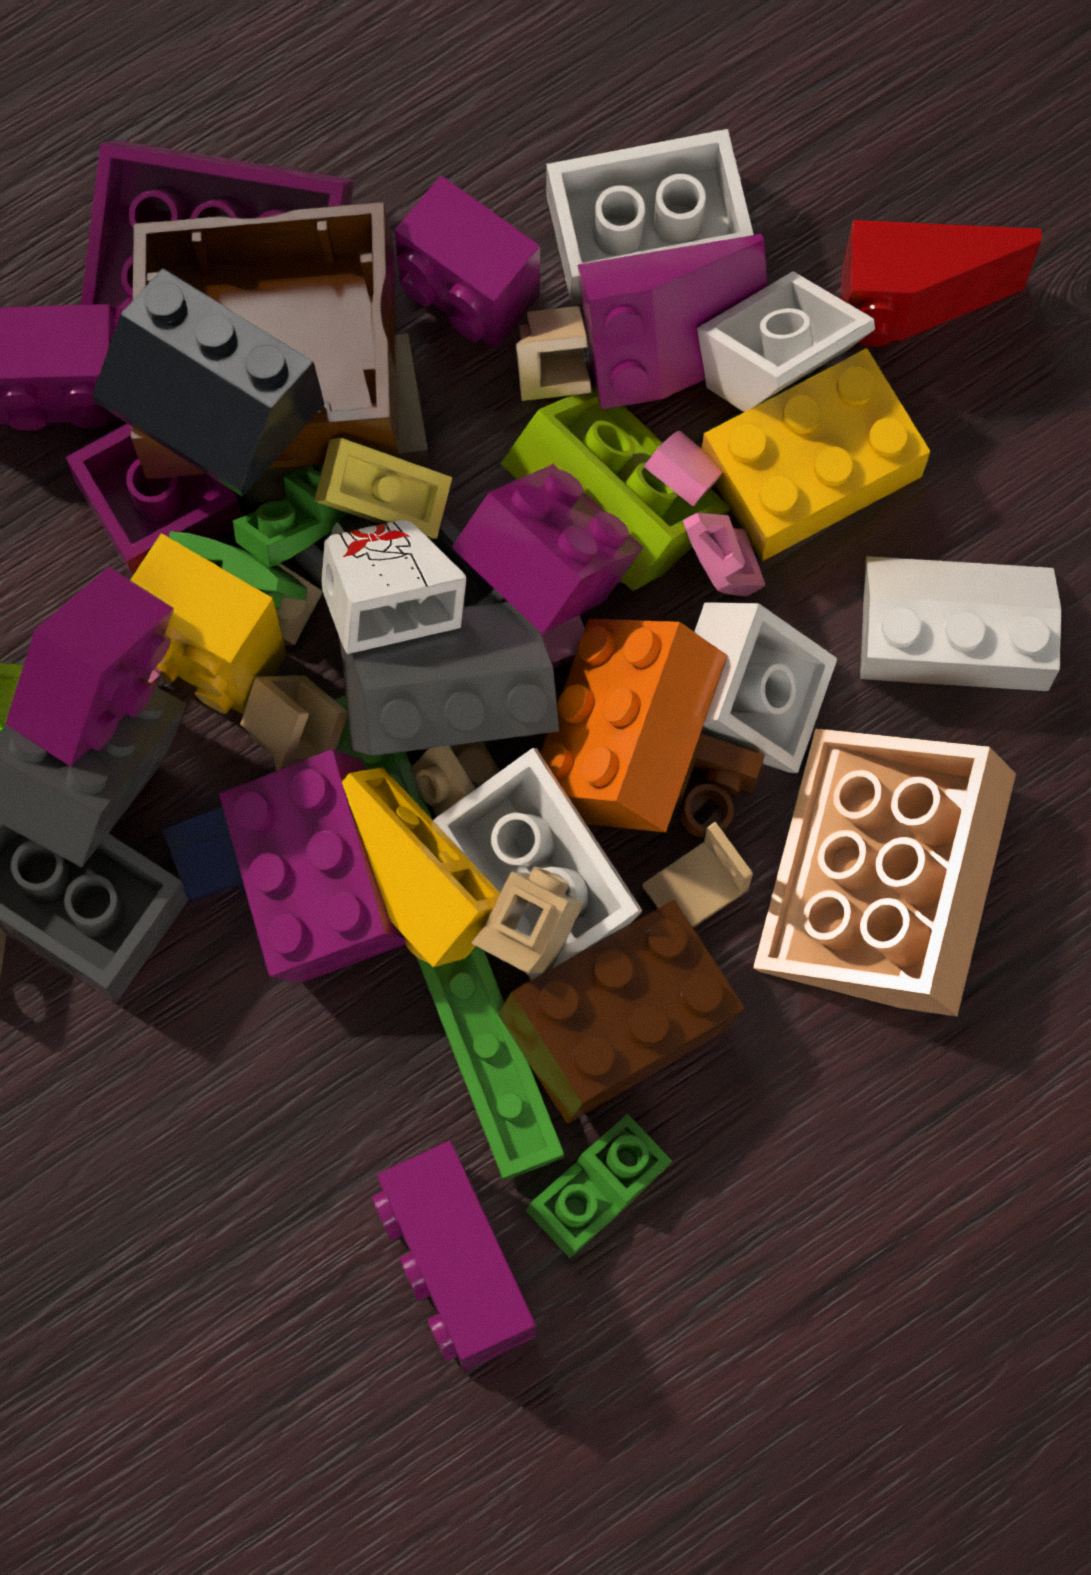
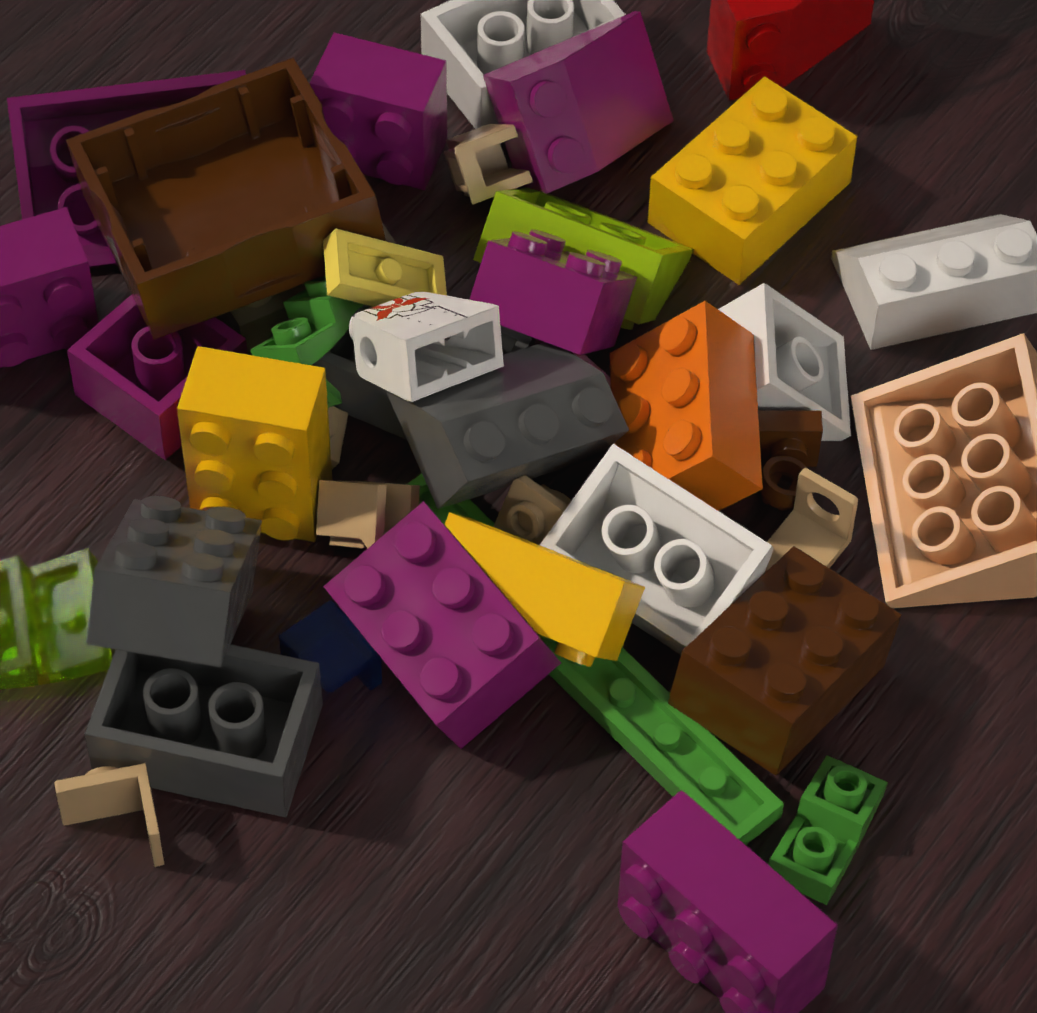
camera: 20 degrees left, 20 degrees down
(90, 667) = (173, 468): magenta brick -> none
(206, 382) = (195, 208): black slope -> none
(544, 945) = (686, 604): tan window -> none
(684, 467) = (643, 211): bright pink slope -> none
(724, 554) = (705, 262): bright pink slope -> none
(777, 340) = (684, 93): white slope -> none

